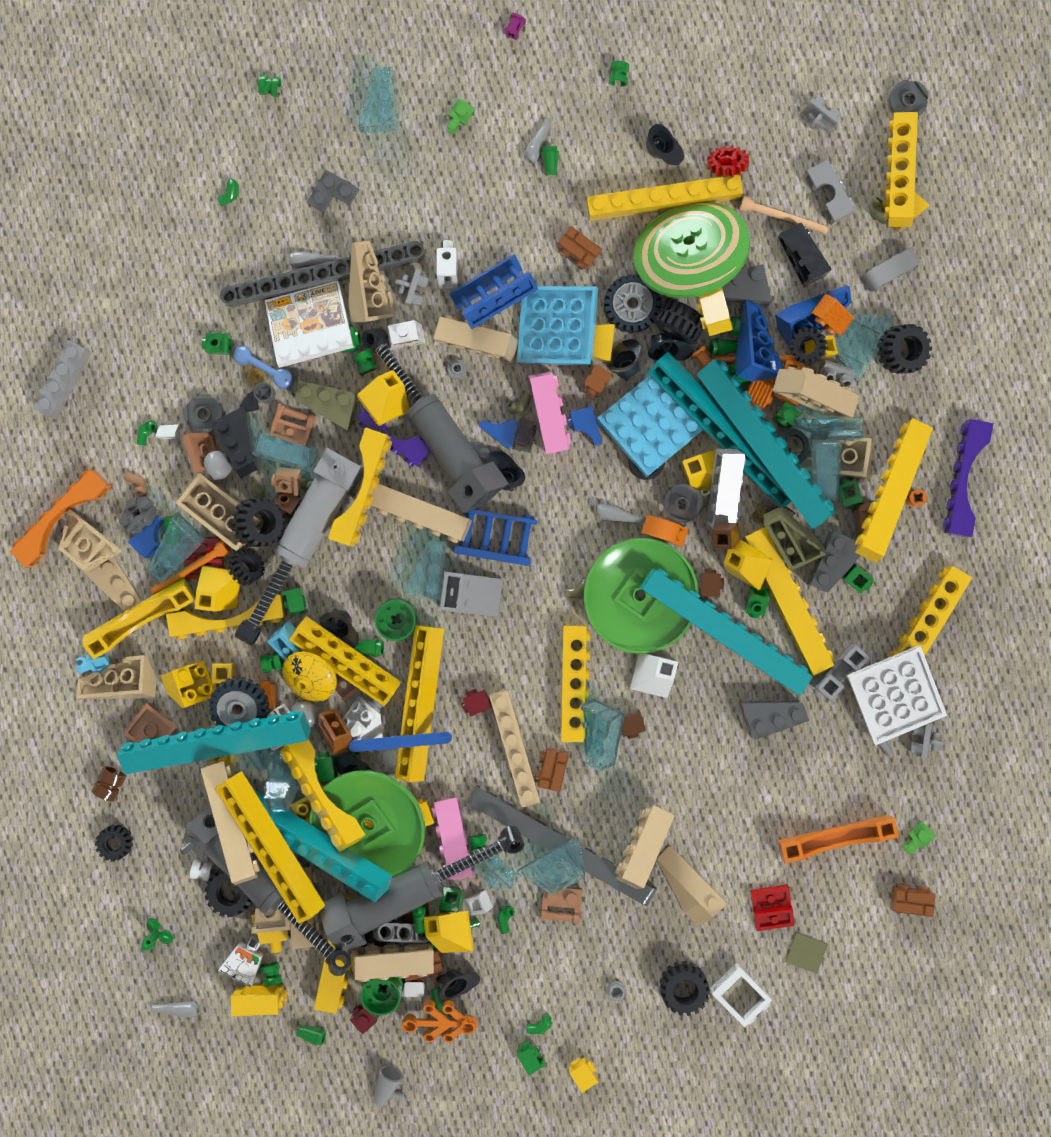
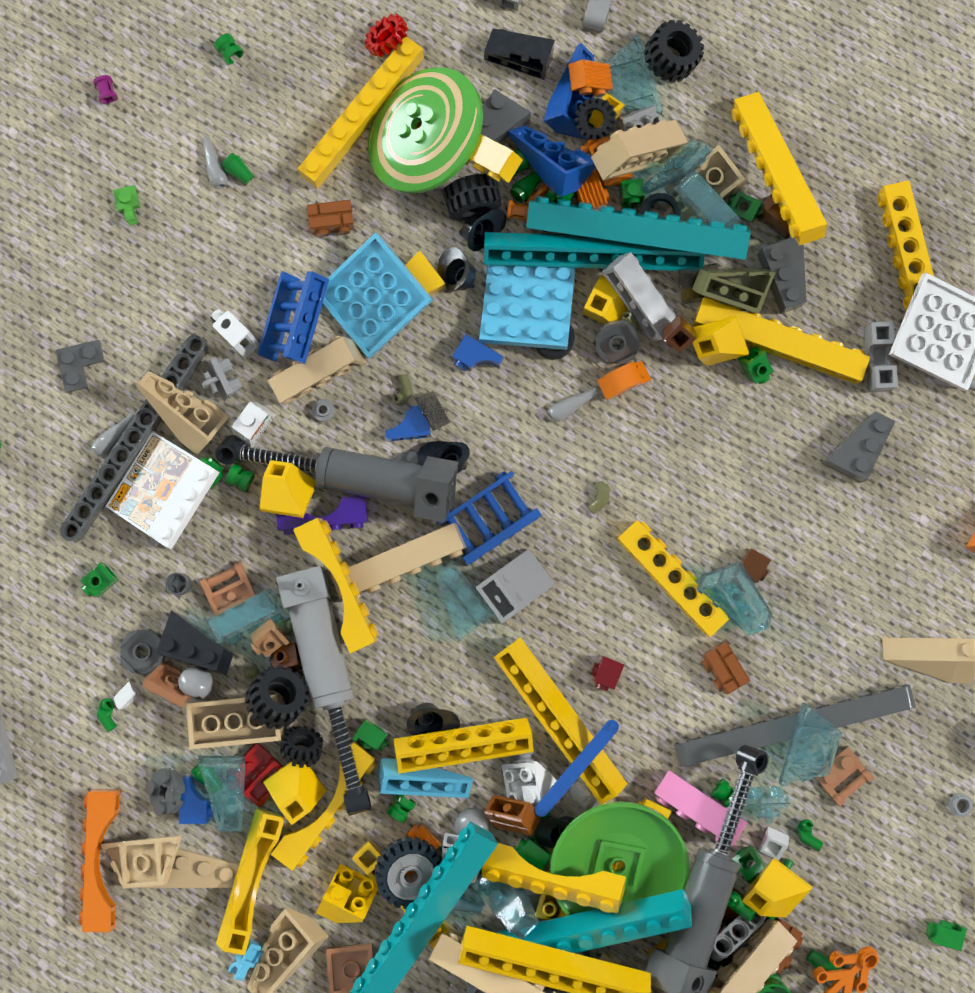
camera: 50 degrees left, 5 degrees down
(139, 483) = (141, 763): medium nougat arm -> none
(220, 549) = (266, 752): orange piece -> none
(244, 356) = (131, 570): medium blue piece -> none
(250, 402) = (174, 603): black tile -> none
(251, 376) = (153, 572): clear yellow plate -> none
(309, 676) = (445, 788): yellow dish -> none
(329, 402) = (241, 540): olive wedge -> none
(346, 692) = (488, 773): reddish brown brick -> none
(371, 647) = (473, 713): green cone -> none
(380, 104) = (52, 254): clear light blue wedge -> none
(398, 630) = (483, 675): green wheel -> none
(414, 989) = (793, 972): white slope -> none
(456, 984) = (821, 933): black piece -> none
(514, 748) = (676, 680): tan brick -> none
(540, 1028) = (930, 899): green arm -> none
(549, 411) = (434, 372): bright pink wedge -> none
(596, 381) = (450, 310): dark orange brick -> none
(611, 600) = (687, 445): bright green dish -> none
(627, 318) = (421, 237): wheel -> none
(644, 847) = (866, 657): tan brick -> none
(653, 675) = (731, 507): white slope -> none
(663, 145) = (321, 72): black piece -> none
(710, 583) = (704, 387): reddish brown brick -> none
(725, 631) = (756, 413): teal brick -> none
(748, 205) = (435, 55): light nougat piece -> none
(862, 583) = (826, 268): green brick -> none
(922, 497) = (805, 156): orange bush -> none
(960, 516) = (849, 141): dark purple arch -> none

